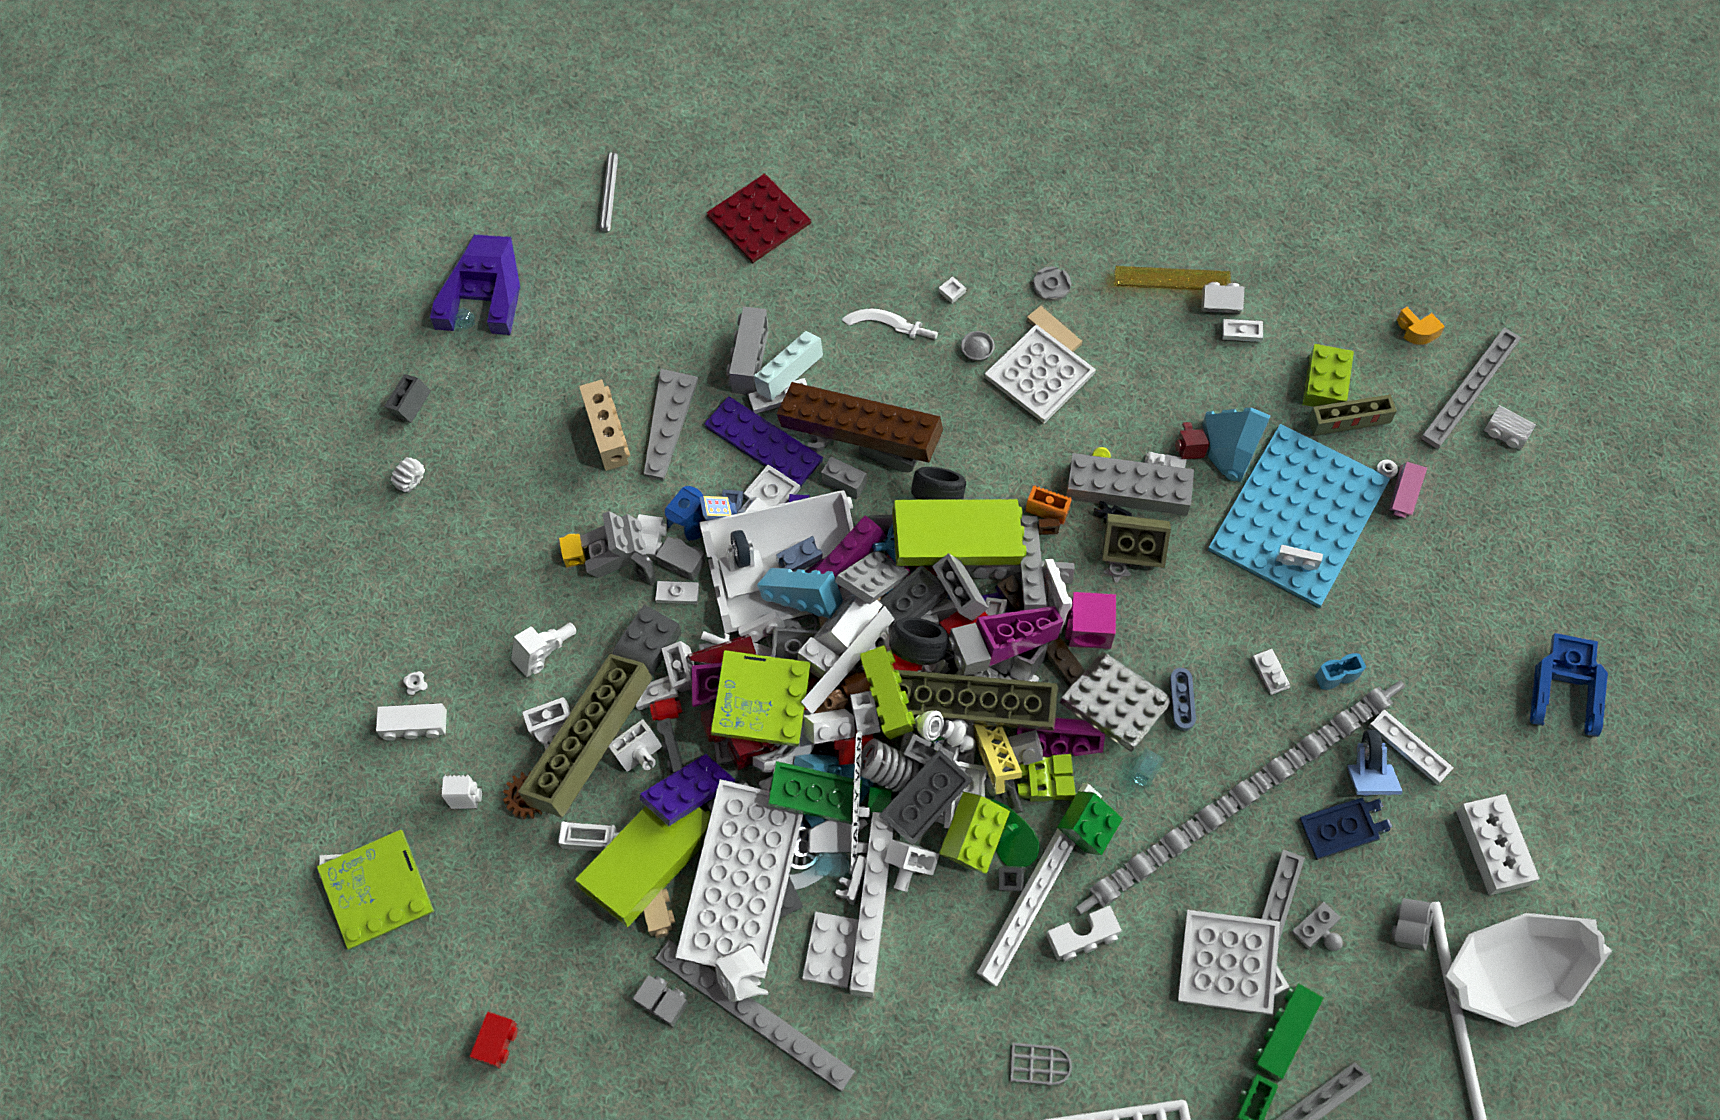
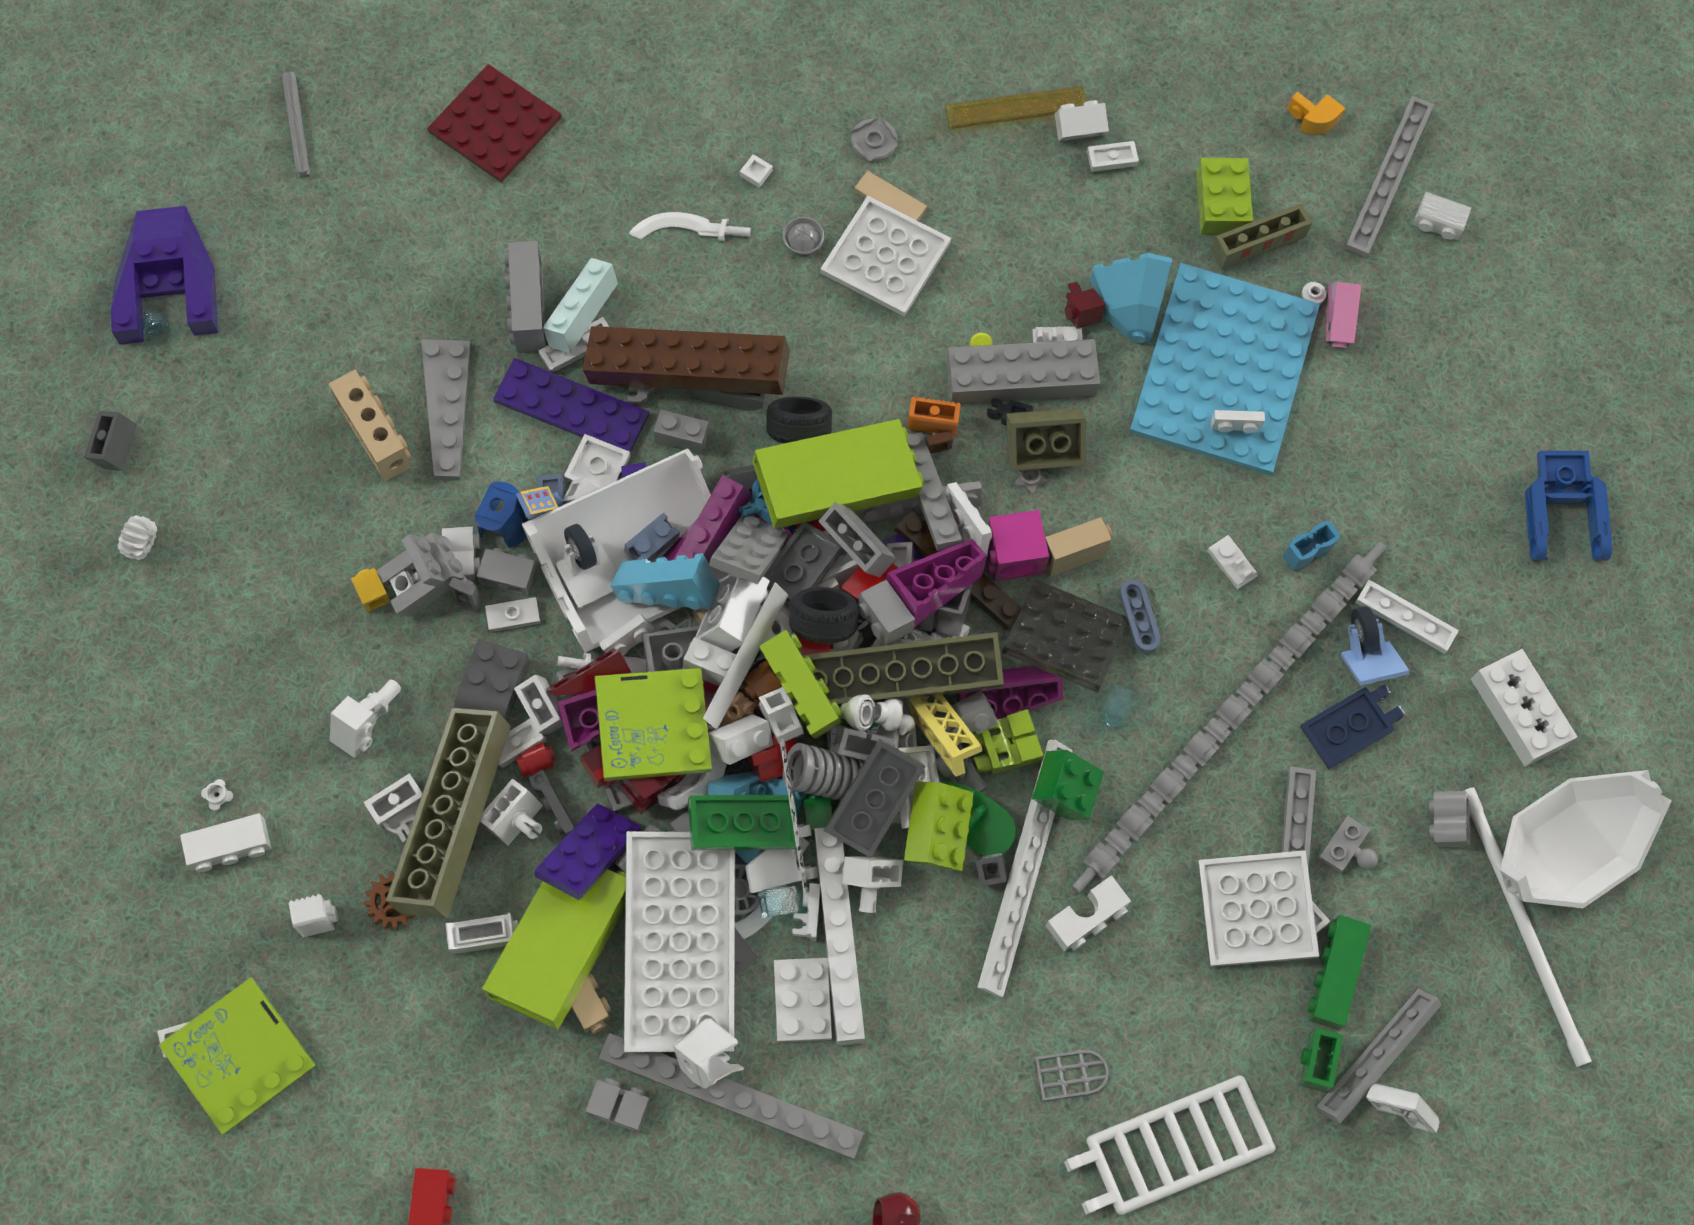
camera: 20 degrees left, 5 degrees up
(1142, 631) = (1077, 546): none -> tan brick

